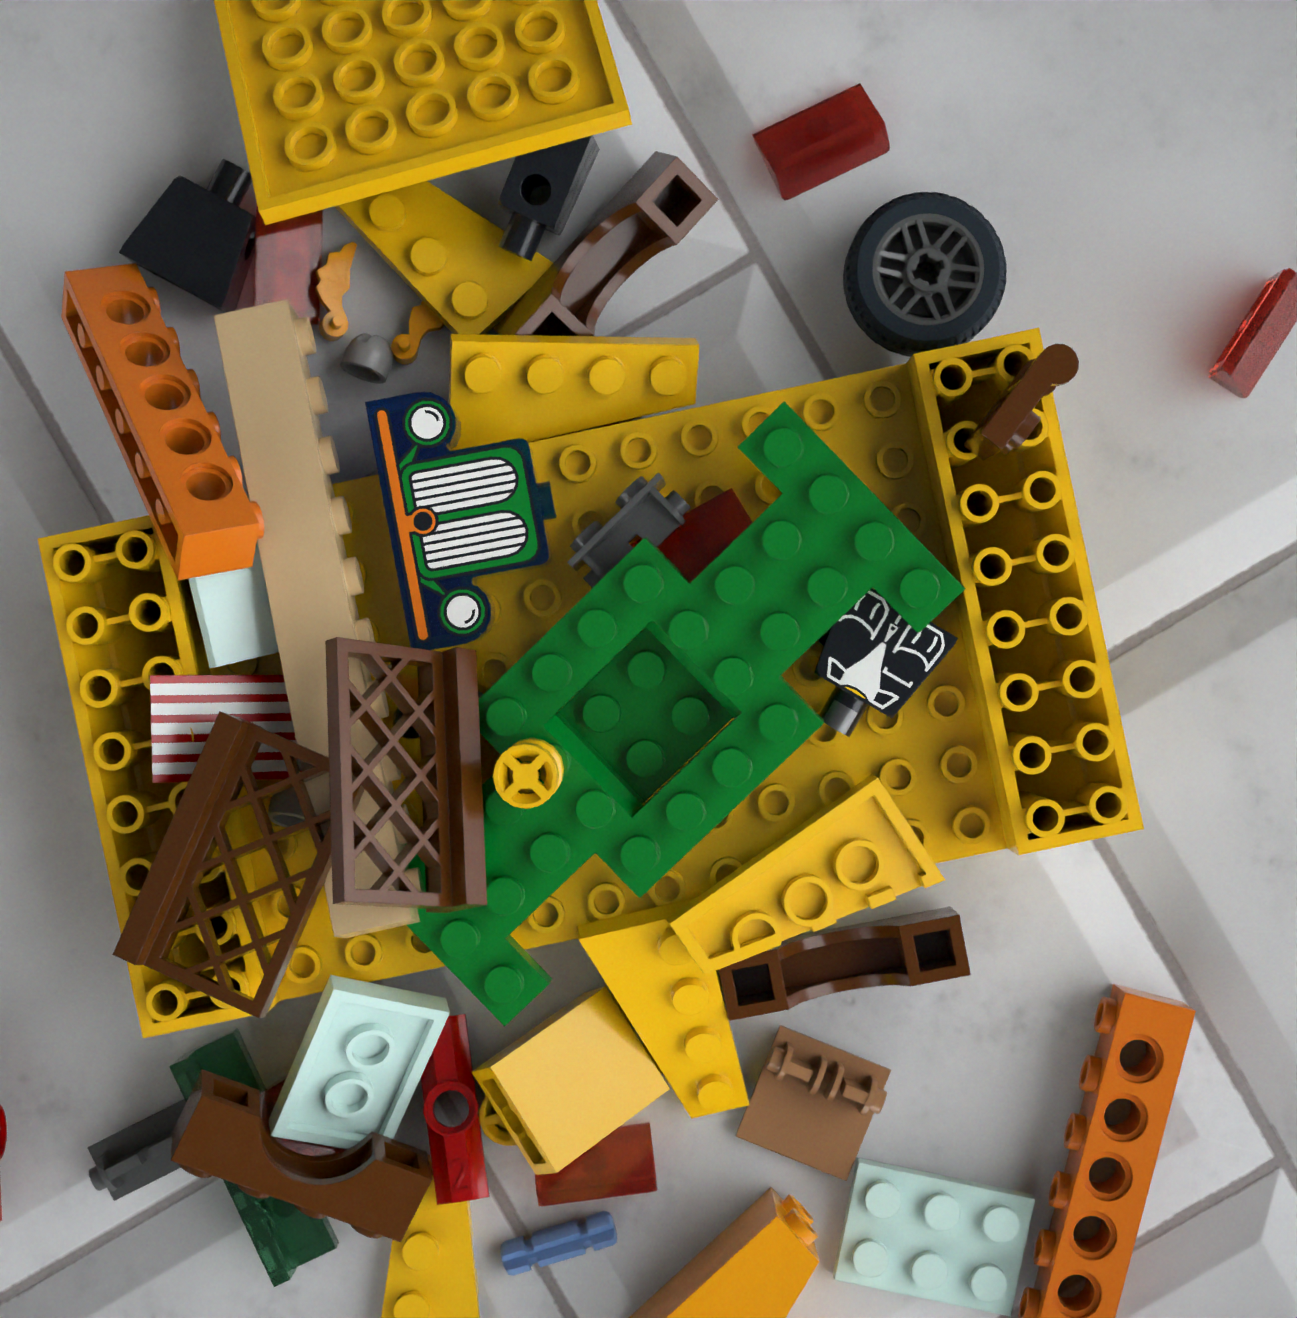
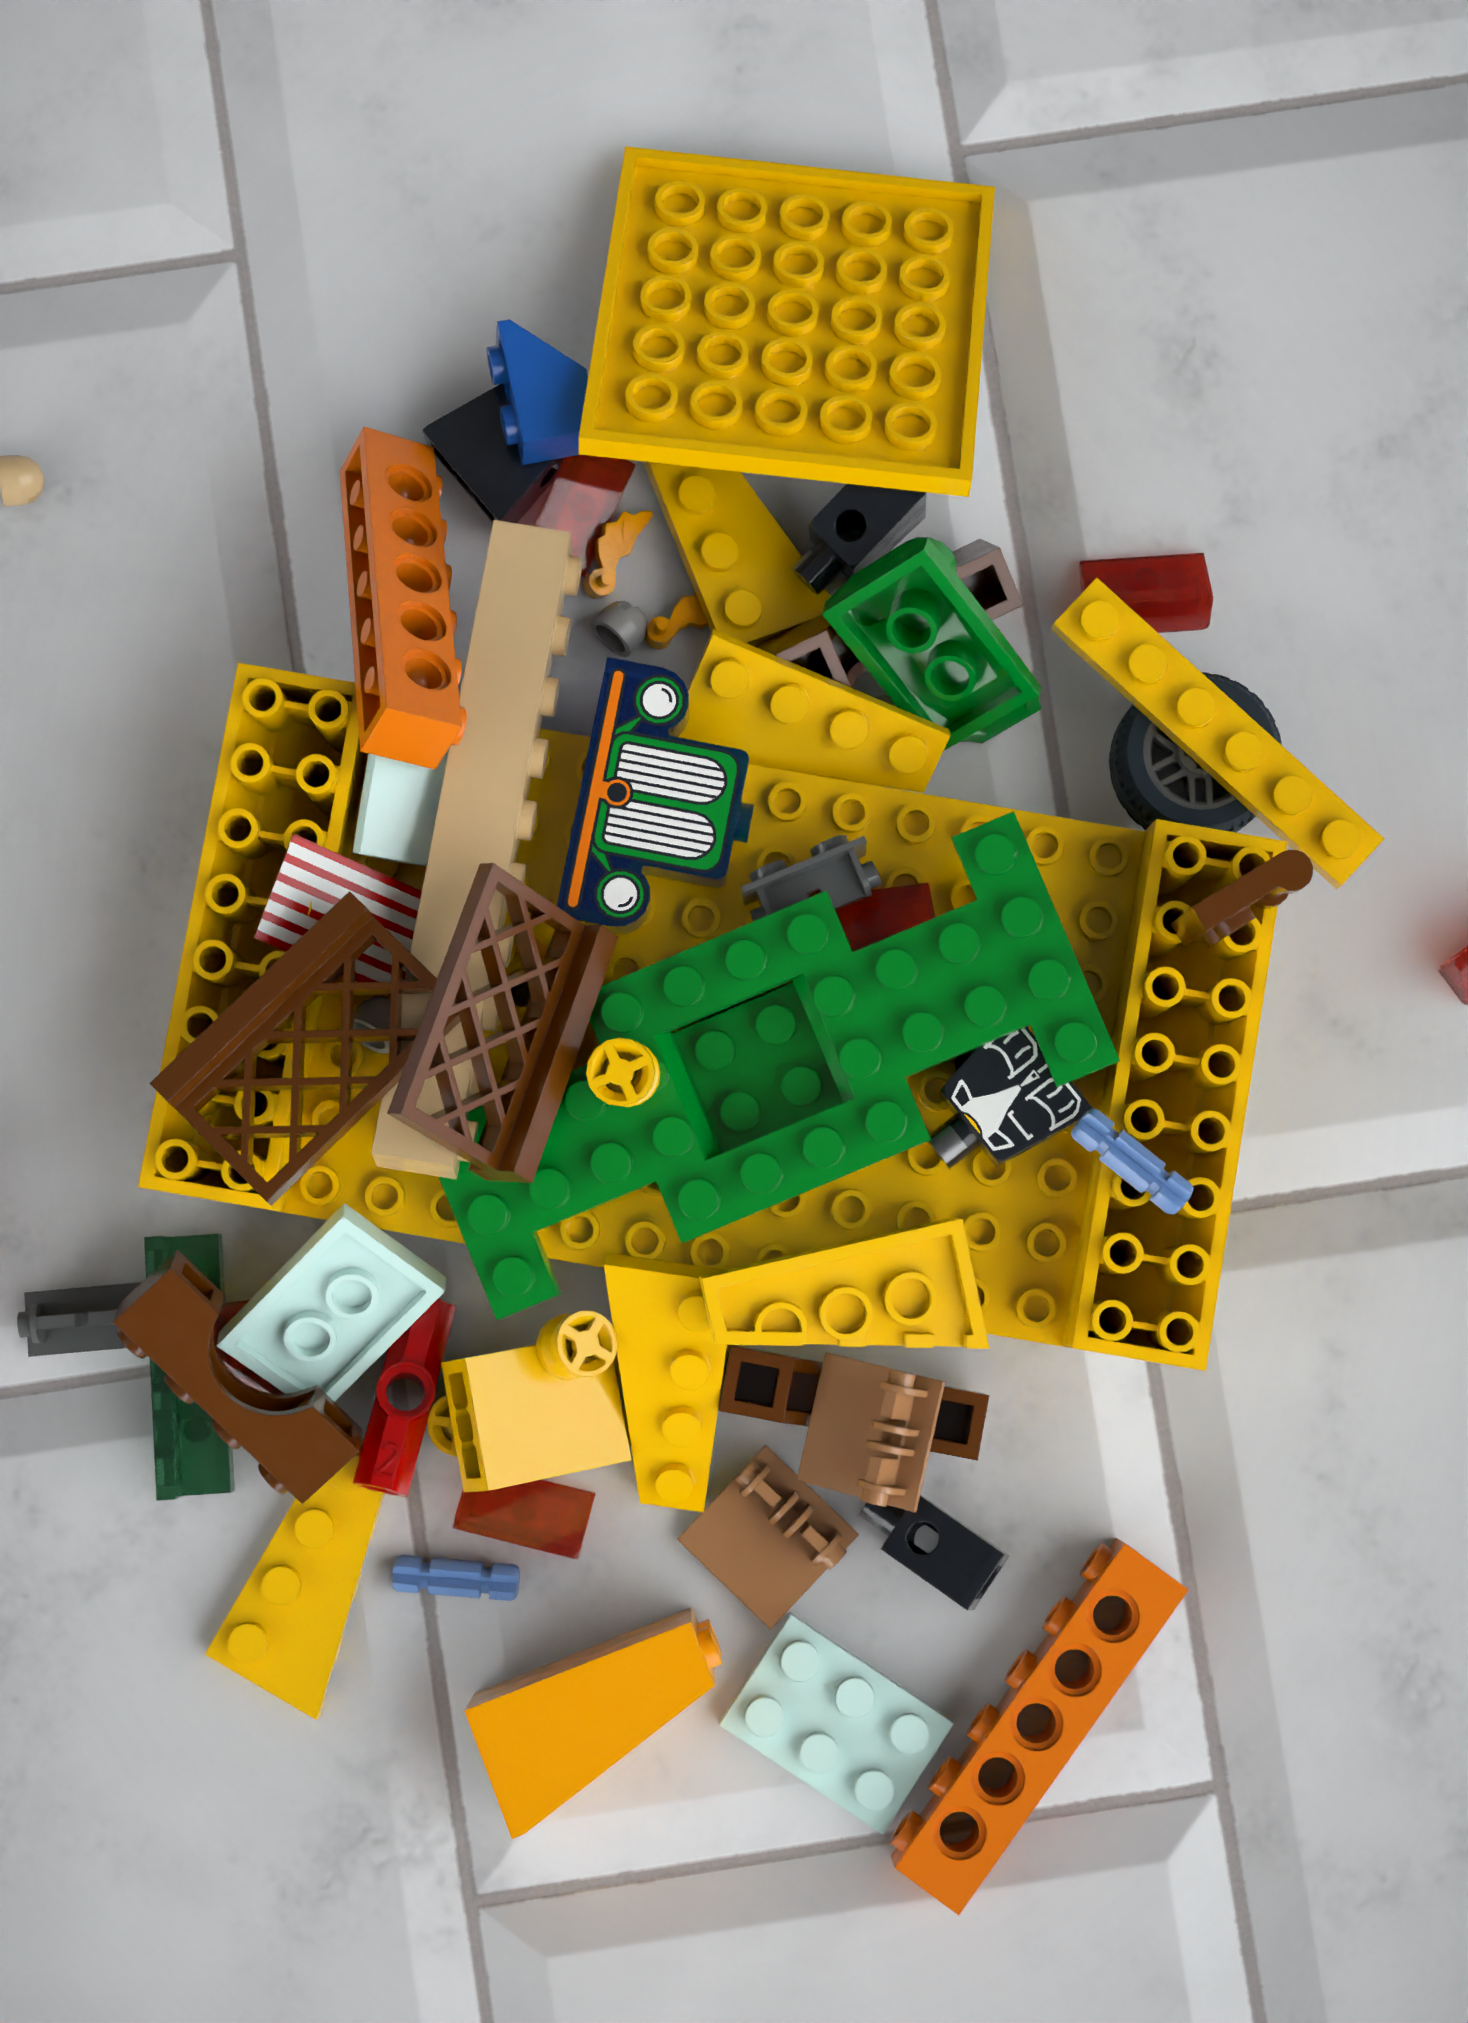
camera: 15 degrees right, 5 degrees down
(212, 178) = (542, 394): none -> blue slope
(597, 1011) = (591, 1340): none -> yellow wheel
(649, 266) = (933, 643): none -> green slope
(869, 987) = (871, 1432): none -> medium nougat hinge
(936, 248) = (1216, 733): none -> yellow plate
(989, 1065) = (959, 1565): none -> black torso
(1010, 672) = (1132, 1161): none -> medium blue axle

